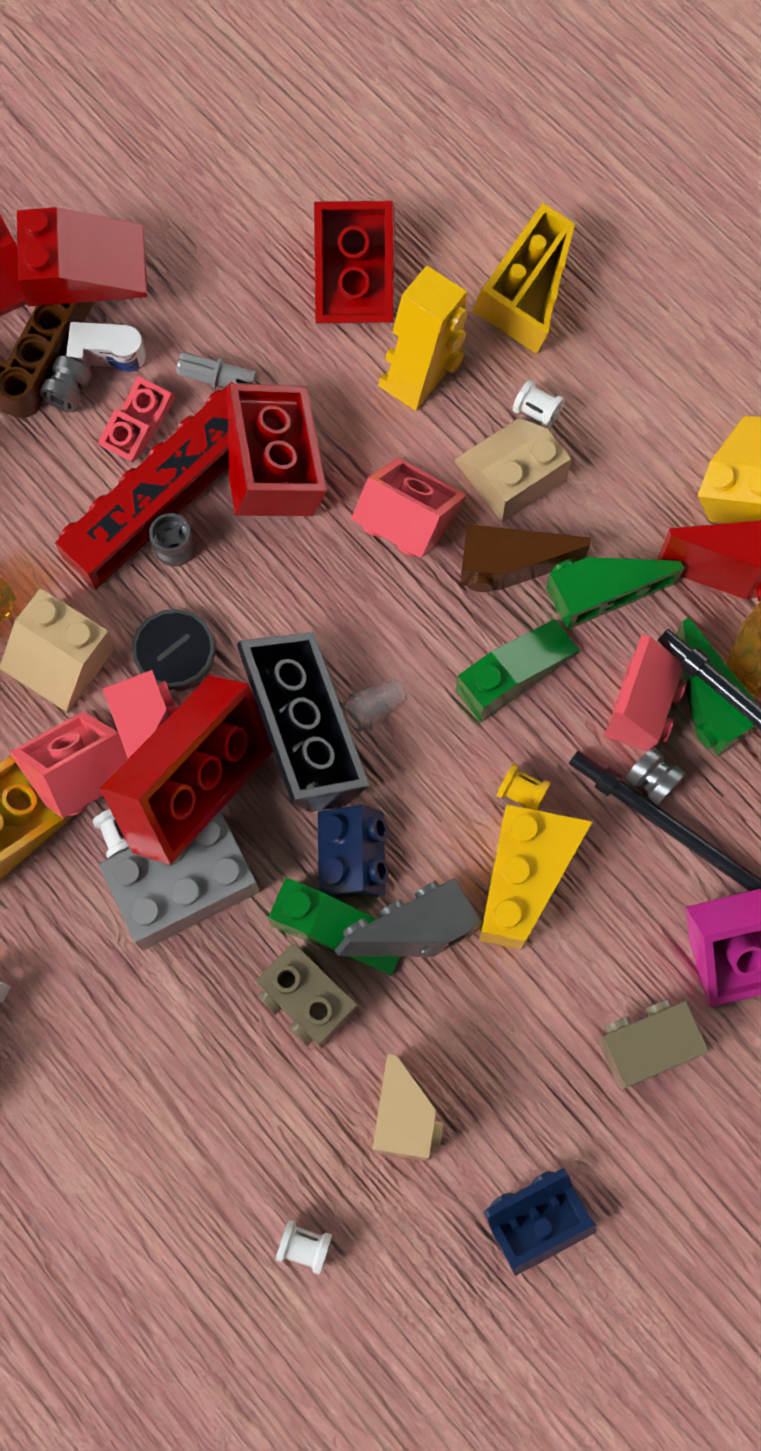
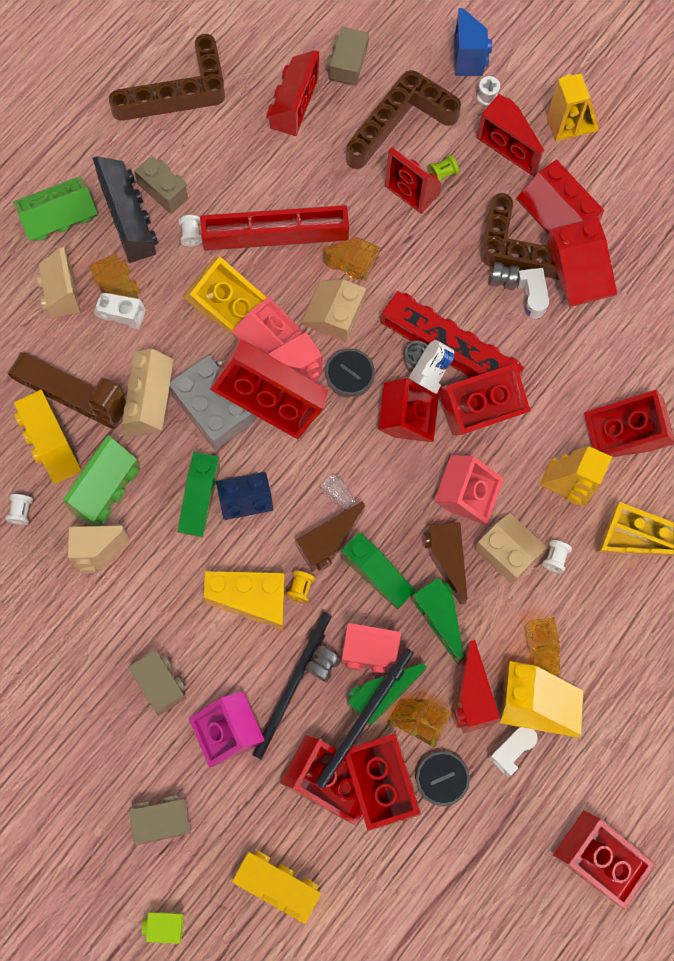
camera: 75 degrees right, 0 degrees up
(100, 1126) = (100, 403): none -> reddish brown beam
(137, 421) = (492, 322): coral slope -> none
(143, 982) = (147, 393): none -> tan slope
(177, 1176) = (46, 436): none -> yellow wedge
(200, 511) = (432, 365): none -> white leg
(212, 371) = (533, 360): light grey axle -> none
(260, 571) = (408, 411): none -> red slope
(291, 1084) = (102, 483): none -> bright green slope
(303, 720) = (313, 447): black slope -> none
(305, 996) = (155, 484): dark tan brick -> none
(417, 929) = (204, 539): dark grey slope -> none
(454, 732) = (325, 541): none -> reddish brown slope
(538, 1221) = (49, 634): dark blue bracket -> none
(673, 448) = (543, 644): none -> clear yellow slope

